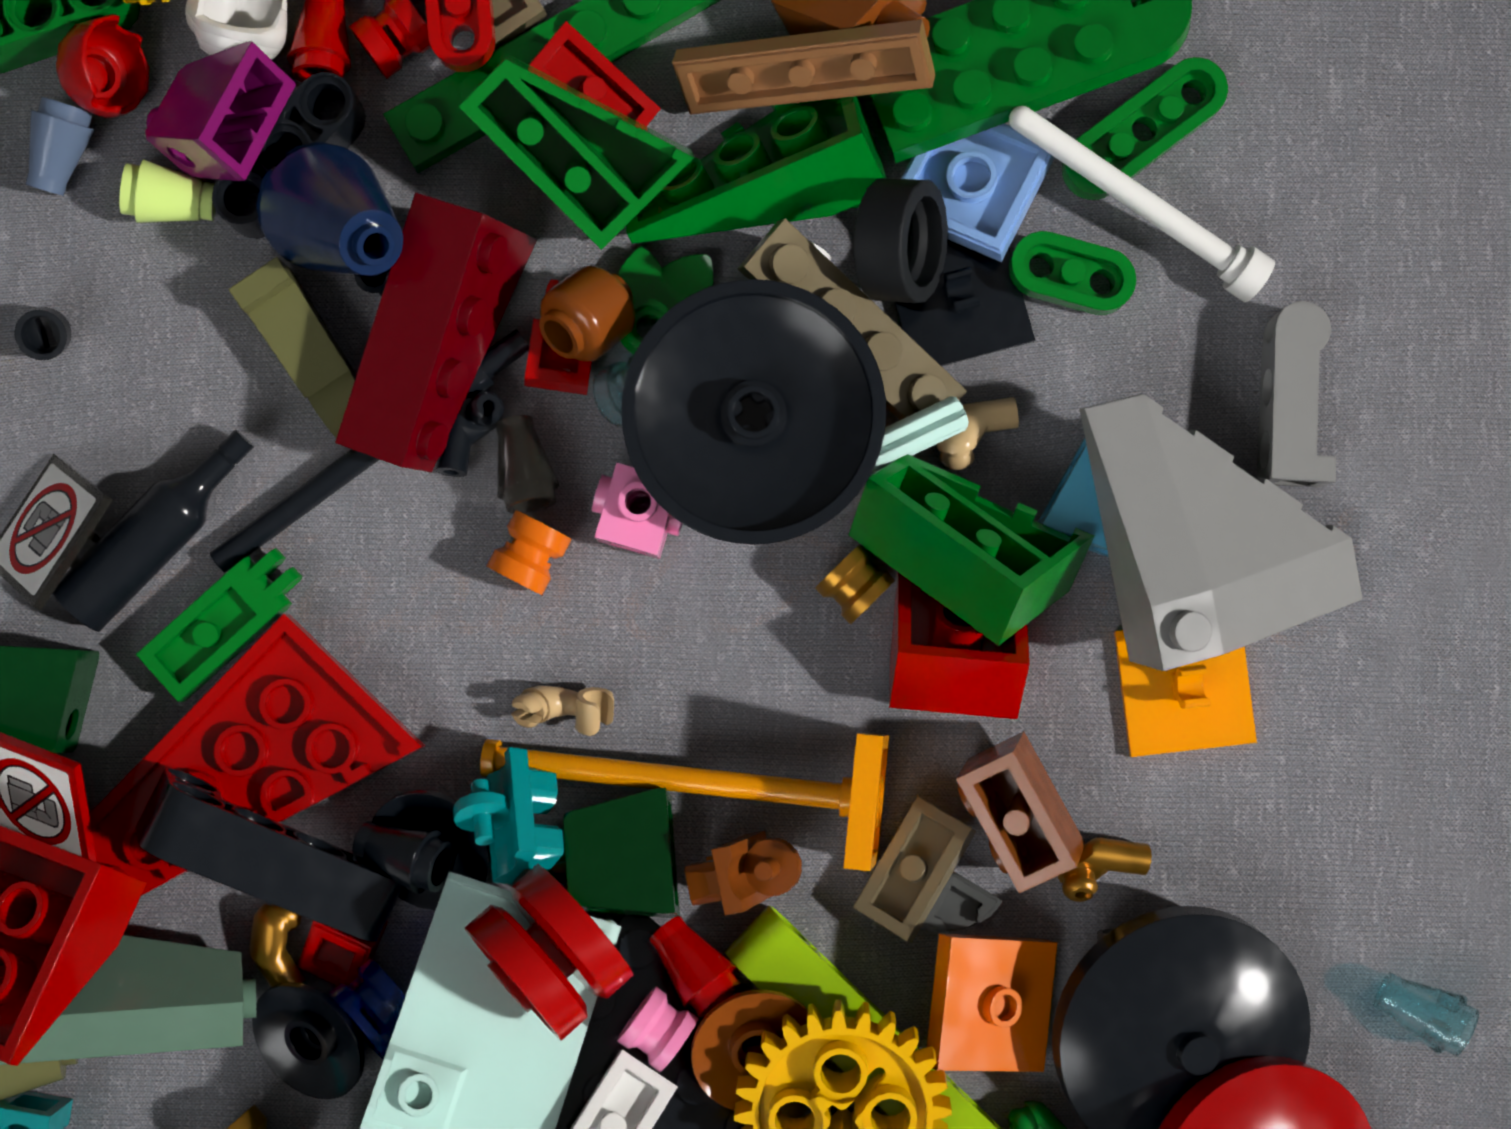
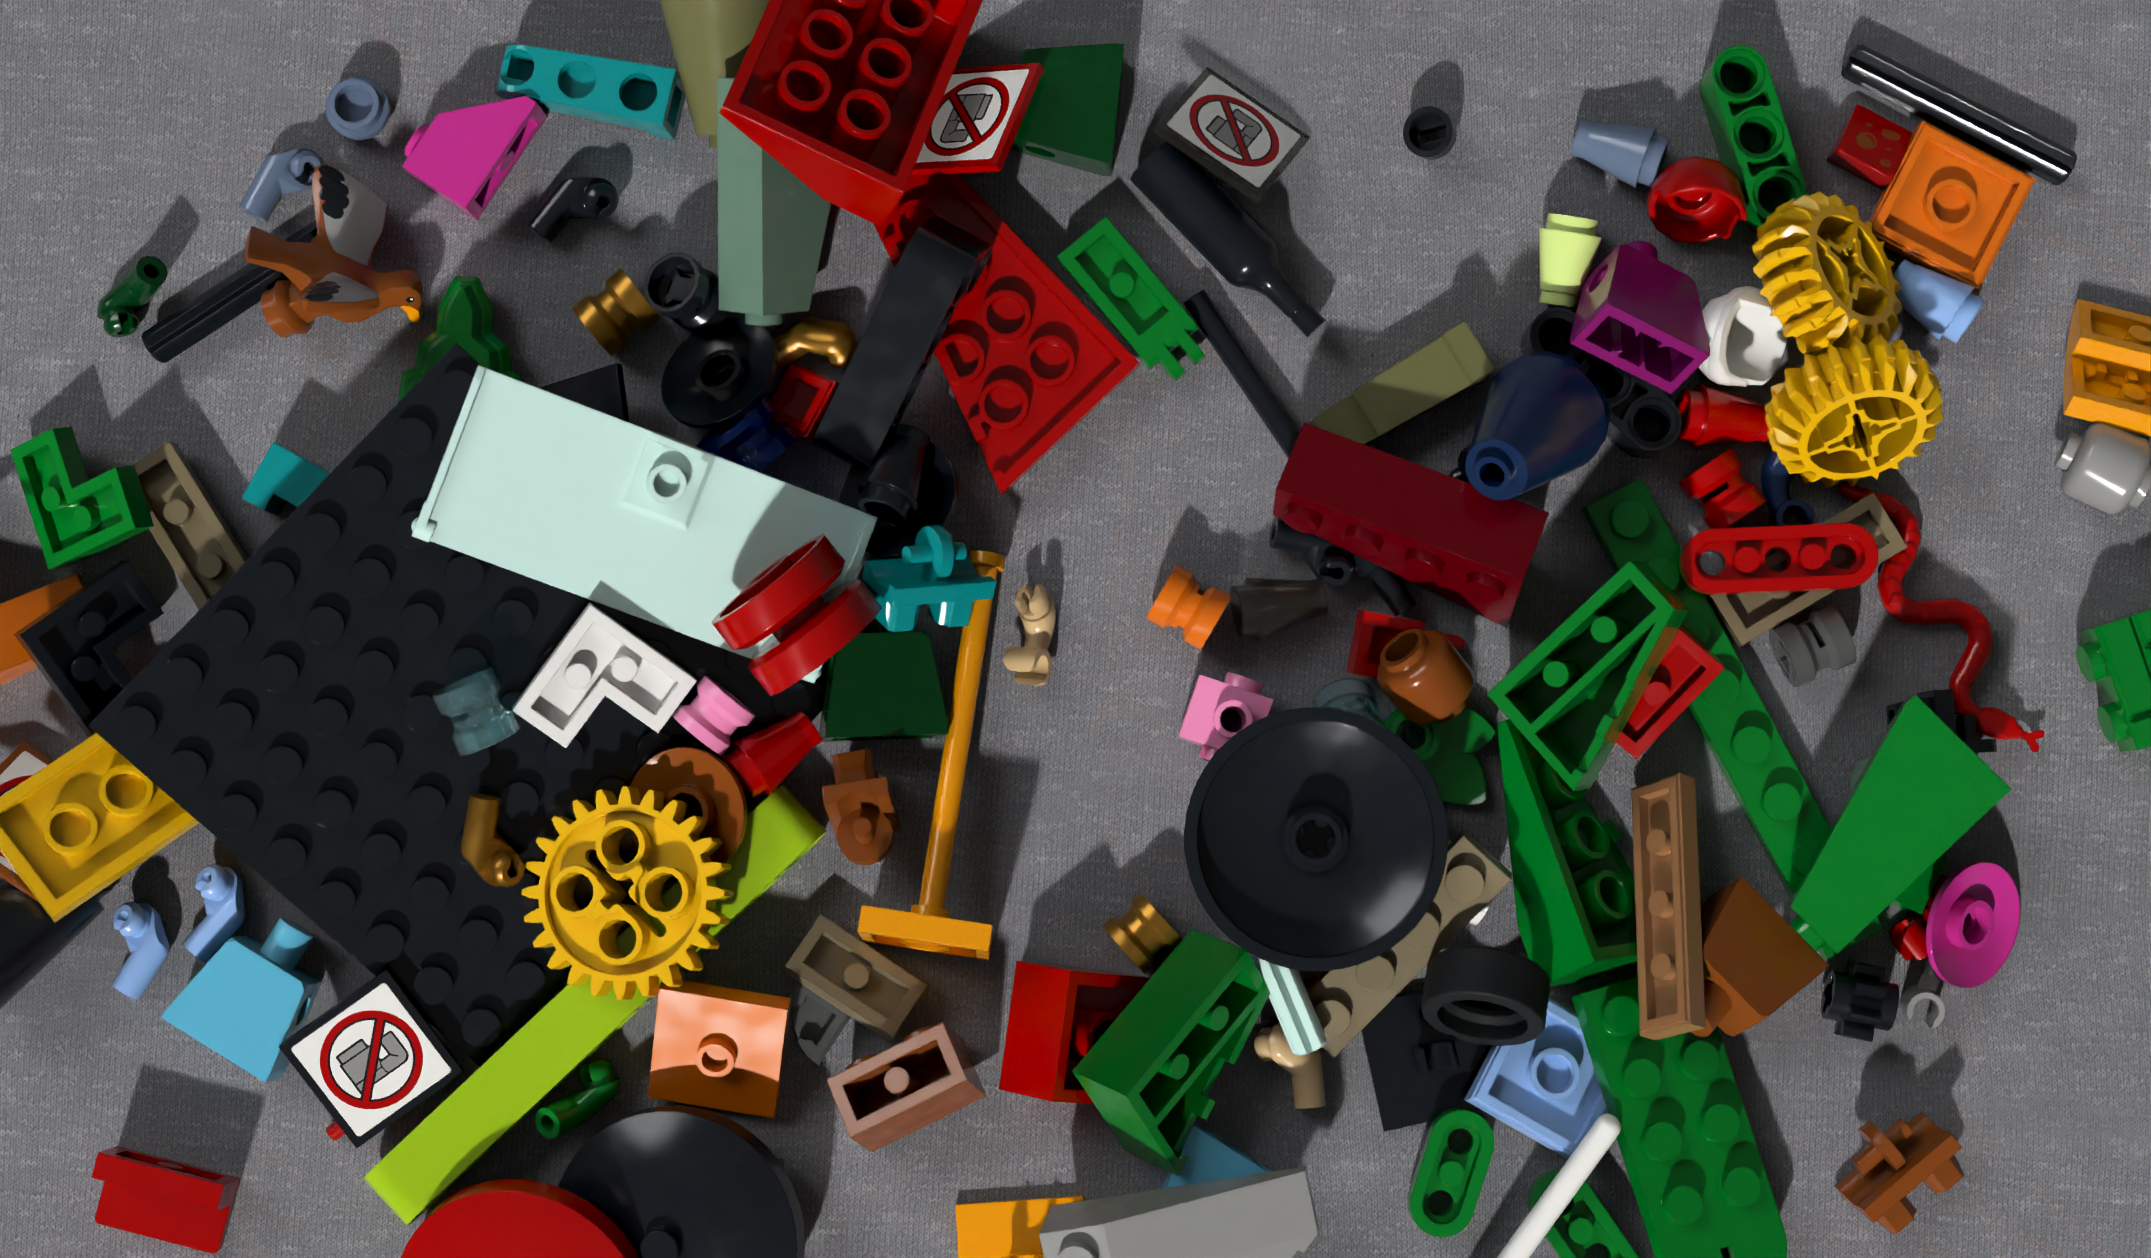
camera: 95 degrees right, 0 degrees up
(225, 1081) = (684, 292): none -> black wheel
(1100, 857) = (854, 1163): pearl gold arm -> none

